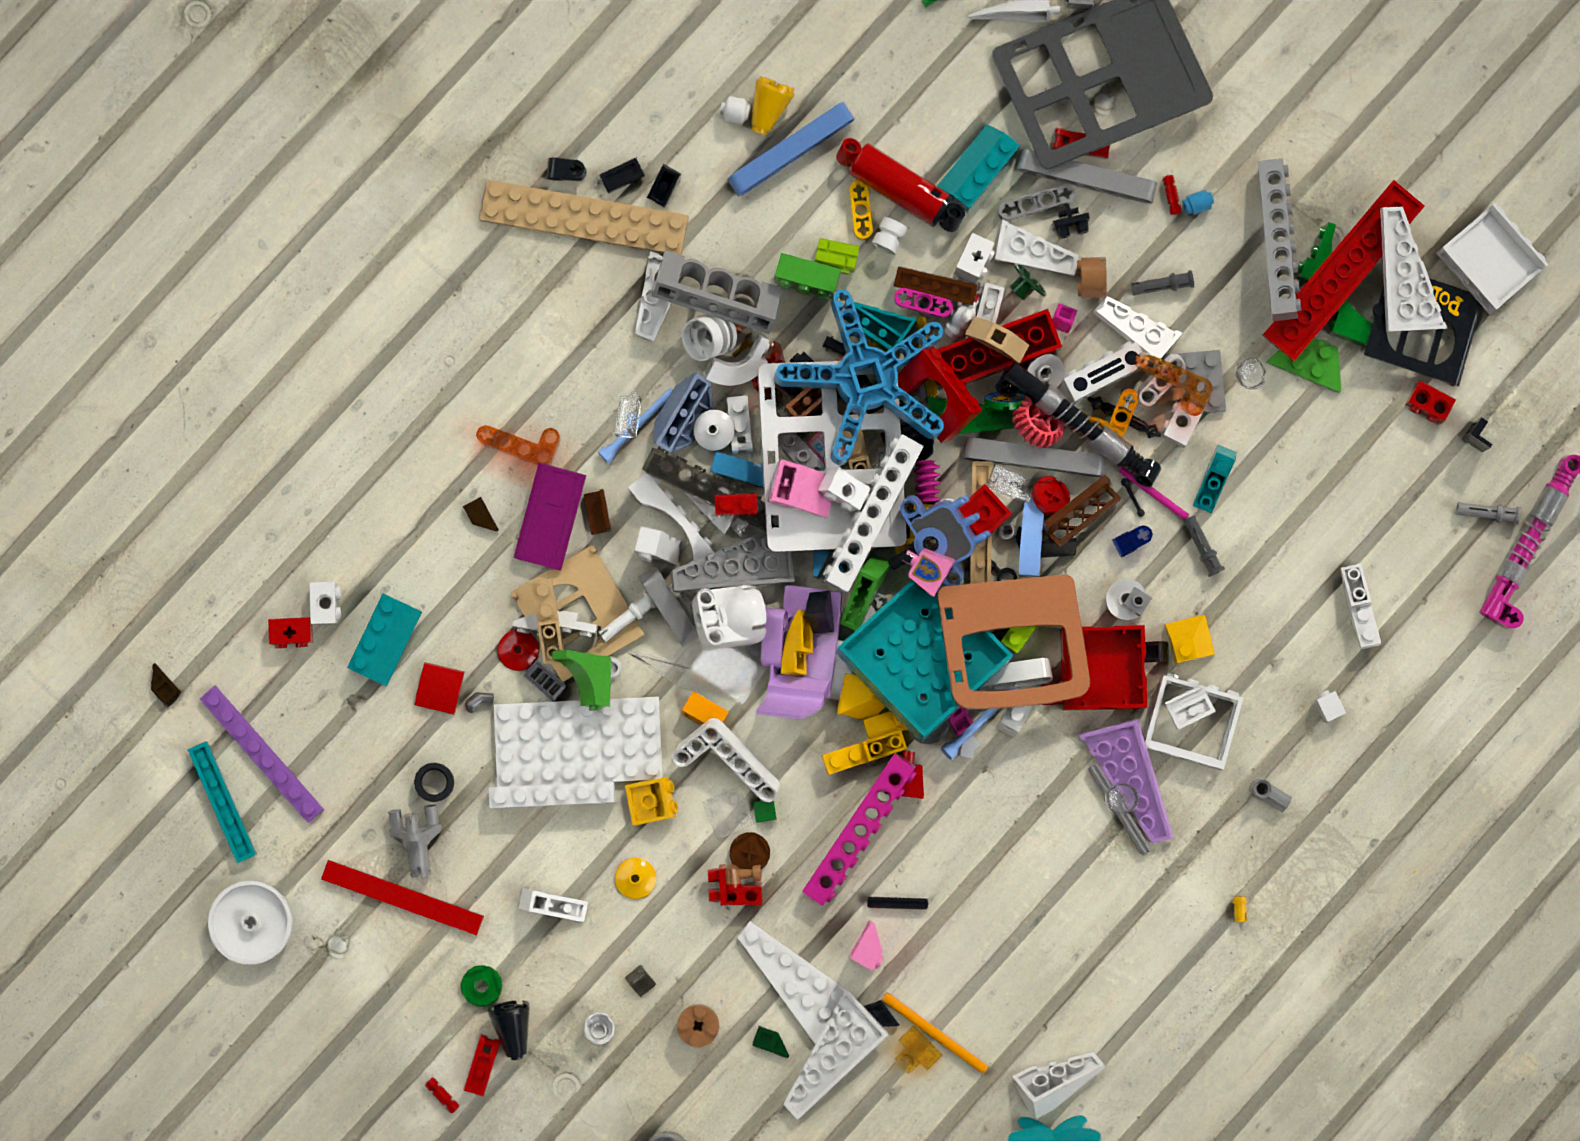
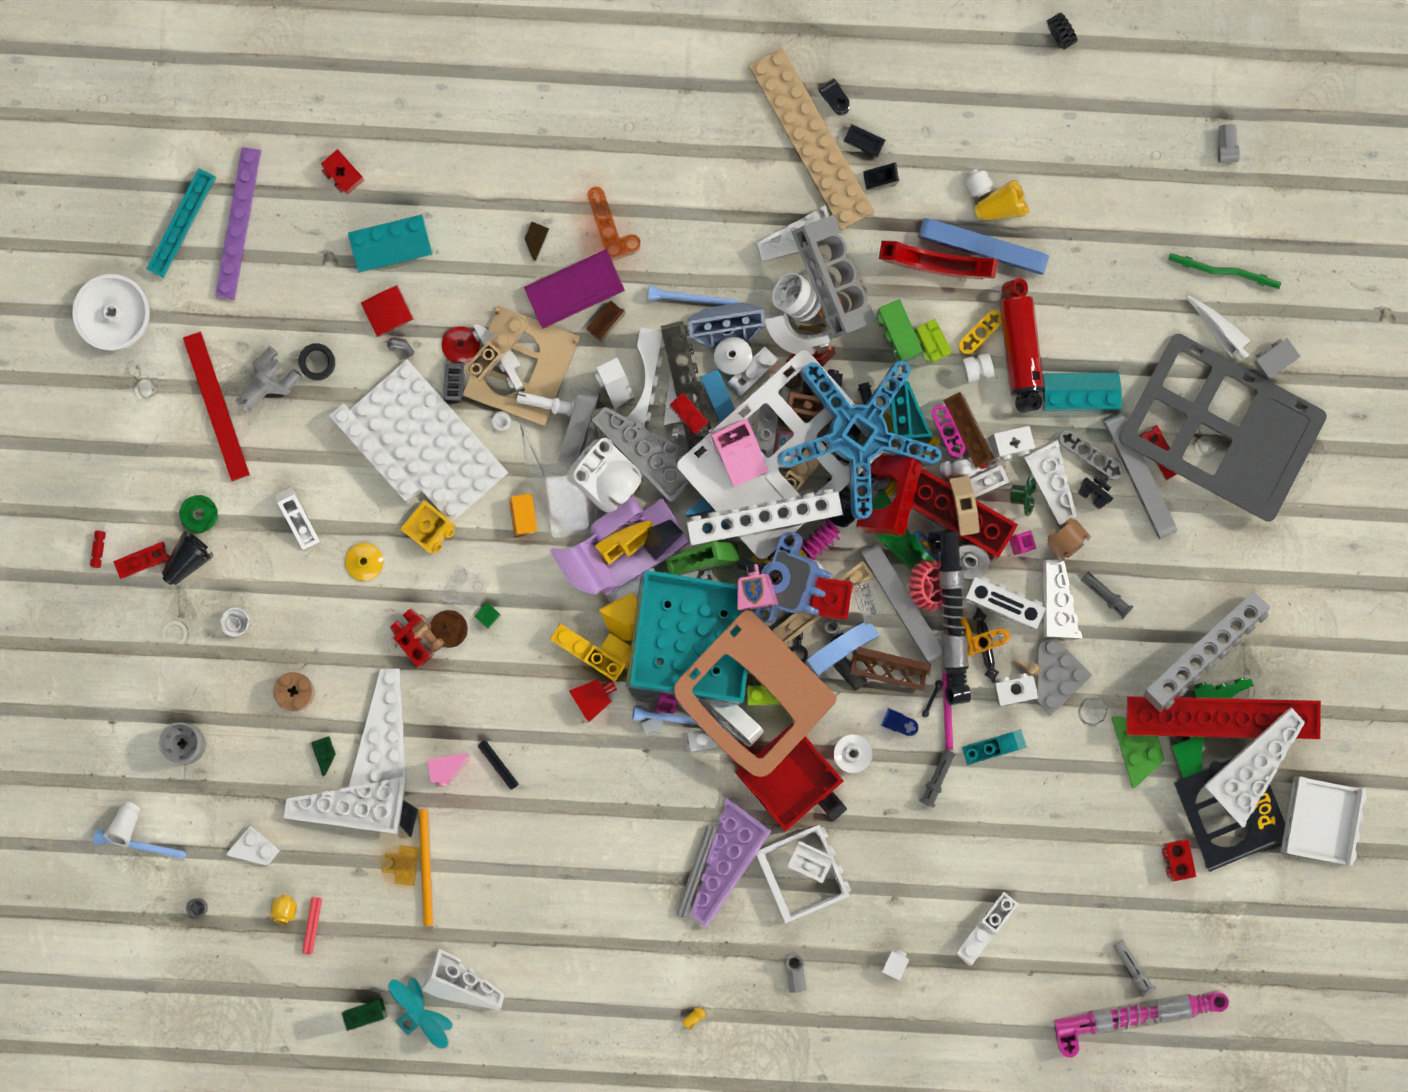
camera: 55 degrees right, 0 degrees up
(163, 686) = (230, 114): dark brown tile -> none
(318, 592) = (384, 169): white brick -> none
(591, 675) = (483, 411): bright green arch -> none
(628, 415) = (693, 286): clear panel -> none
(640, 980) = (293, 625): clear smoke slope -> none
(729, 756) = (505, 557): white beam -> none
(775, 197) = (937, 263): none -> red arch
(814, 887) = (460, 695): dark pink brick -> none
(854, 490) = (769, 490): white brick -> none
(1050, 495) = (883, 636): red tile -> none
(1121, 798) = (703, 865): clear hair -> none
(1130, 603) = (850, 762): light grey plate -> none
(1158, 389) = (1025, 652): white beam -> none
(1171, 194) = (1177, 549): red axle -> none
(1172, 377) = (1040, 655): clear orange beam -> none
(1189, 639) = (862, 823): yellow slope -> none
(1198, 202) = (1187, 572): dark azure brick -> none
(1473, 436) = (1179, 910): black panel -> none

